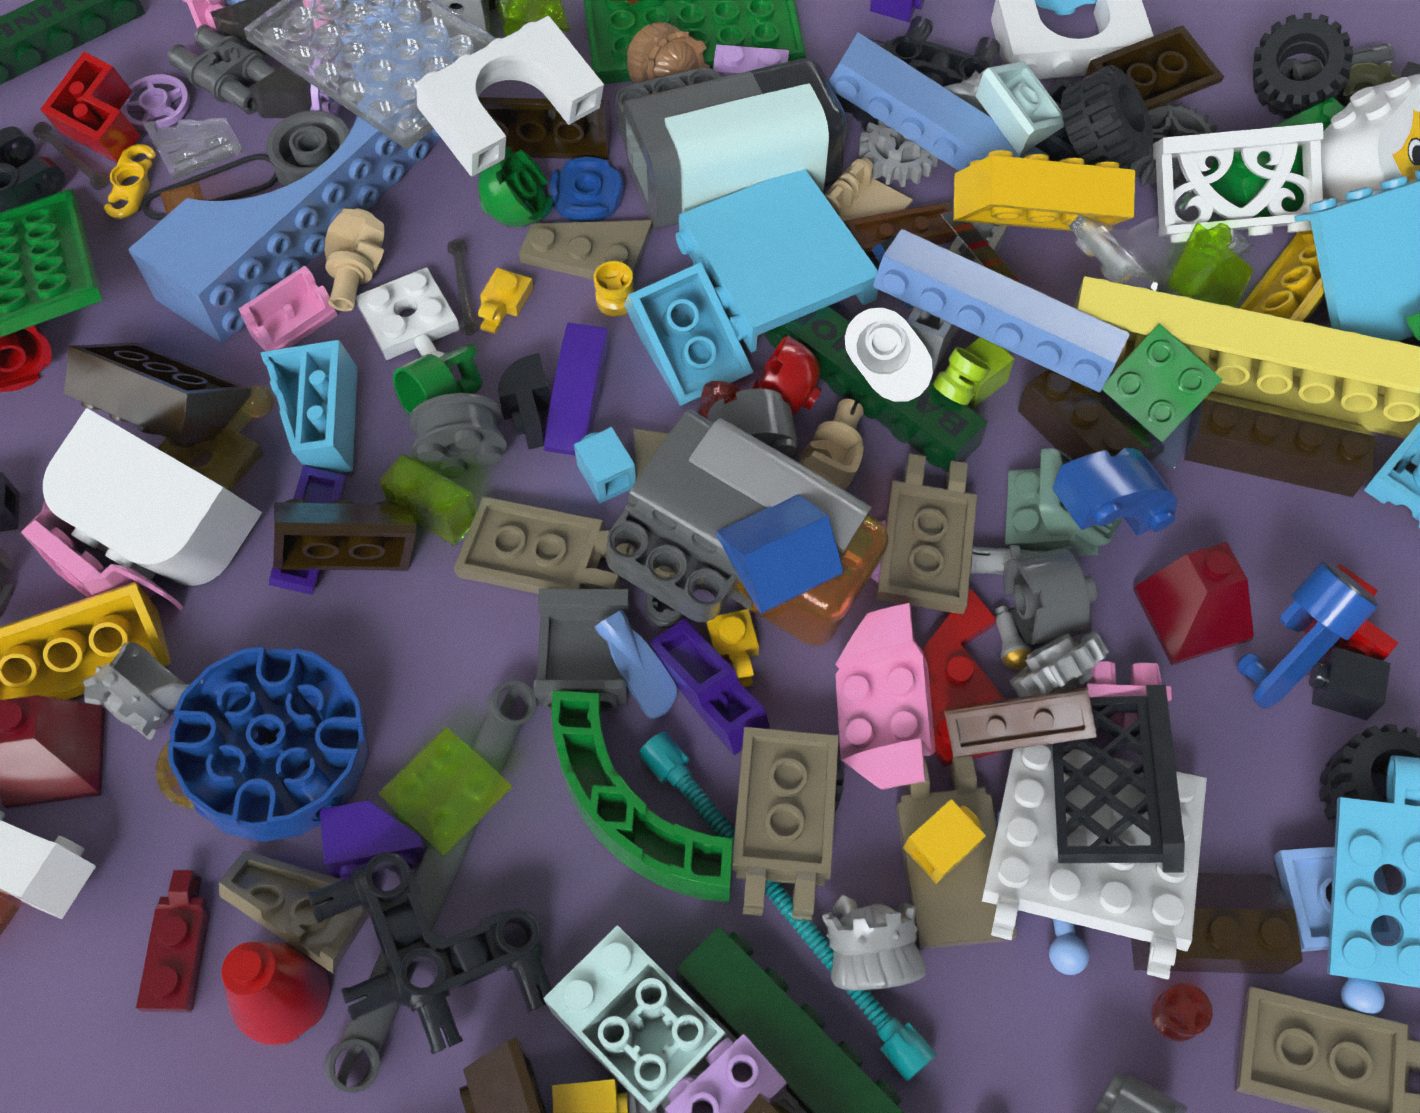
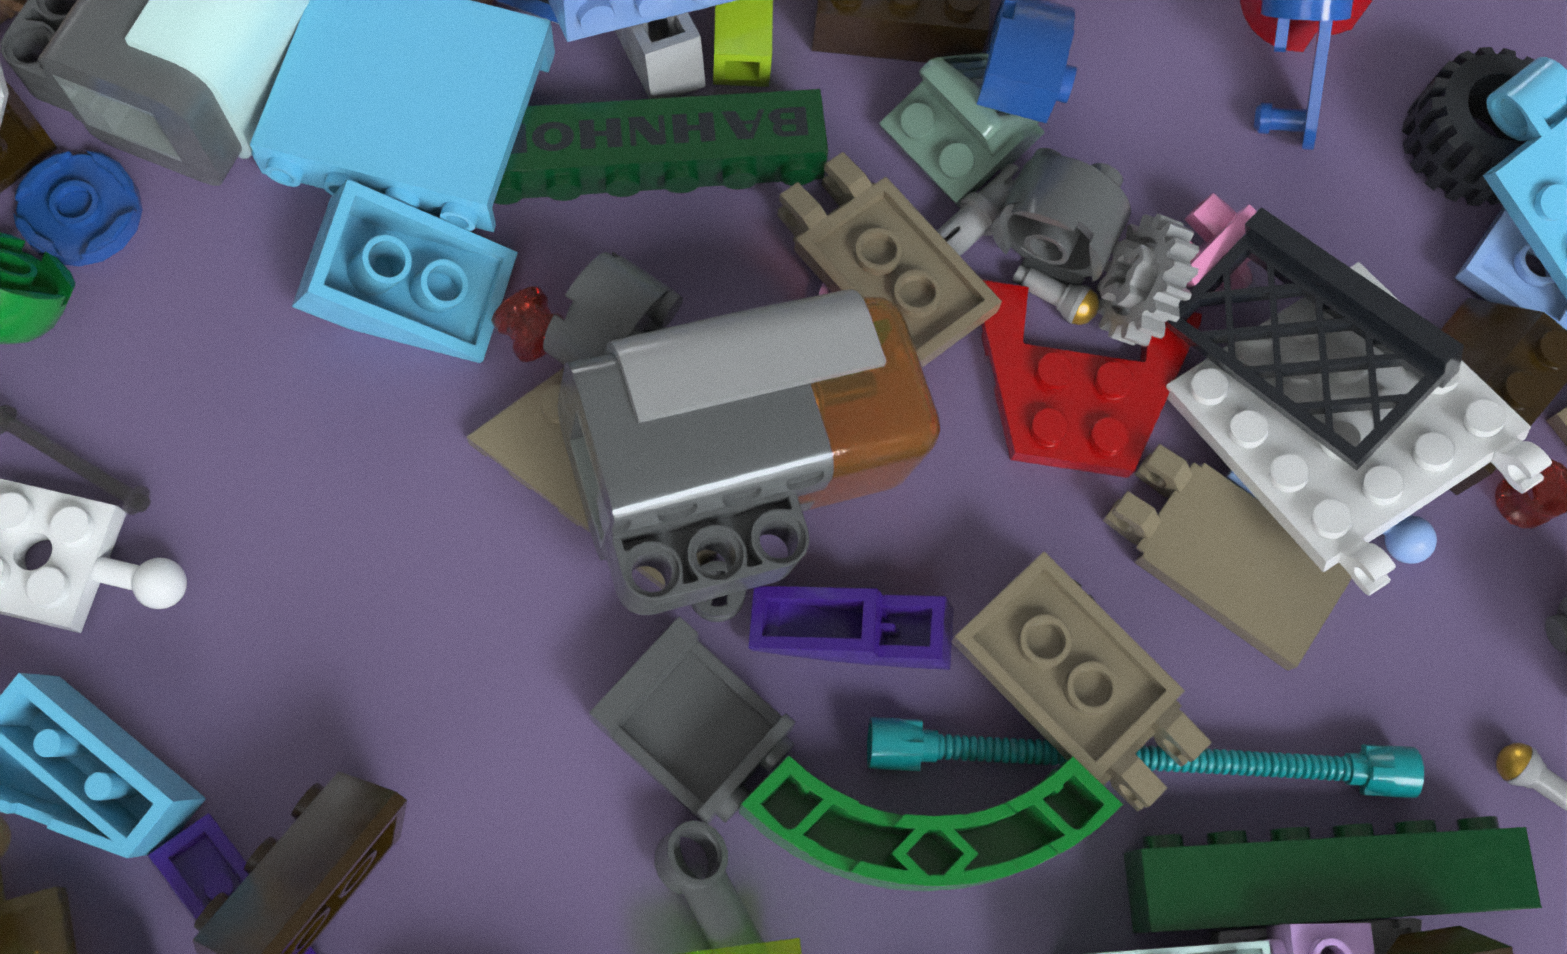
camera: 60 degrees left, 10 degrees up
(431, 377) = (184, 616): green piece -> none
(434, 499) = (339, 737): clear neon green brick -> none
(457, 433) = (292, 637): dark grey wheel -> none
(503, 295) = (132, 424): yellow plate -> none
(524, 394) = (301, 513): black brick -> none
(535, 549) = (521, 670): dark tan tile -> none
(576, 387) = (355, 452): dark purple slope -> none
(584, 246) = (166, 278): dark tan wing -> none
(605, 464) = (484, 505): medium azure brick -> none
(613, 285) = (250, 286): yellow wheel -> none
(638, 666) = (765, 680): medium blue piece -> none
(735, 641) = (830, 560): yellow plate -> none
(782, 551) = (832, 424): blue slope -> none
(793, 373) = (568, 227): red cylinder -> none
(836, 446) = (704, 259): tan piece -> none
(873, 945) = (1276, 713): light grey hair -> none
(885, 701) = (1042, 477): bright pink piece -> none
(889, 354) = (666, 104): white piece -> none
(945, 840) = (1232, 550): yellow brick -> none
(961, 376) = (752, 62): lime wheel -> none
(1021, 722) = (1179, 369): tile -> none
(1198, 604) = (1172, 100): dark red slope -> none
(1350, 683) = (1364, 55): black brick -> none

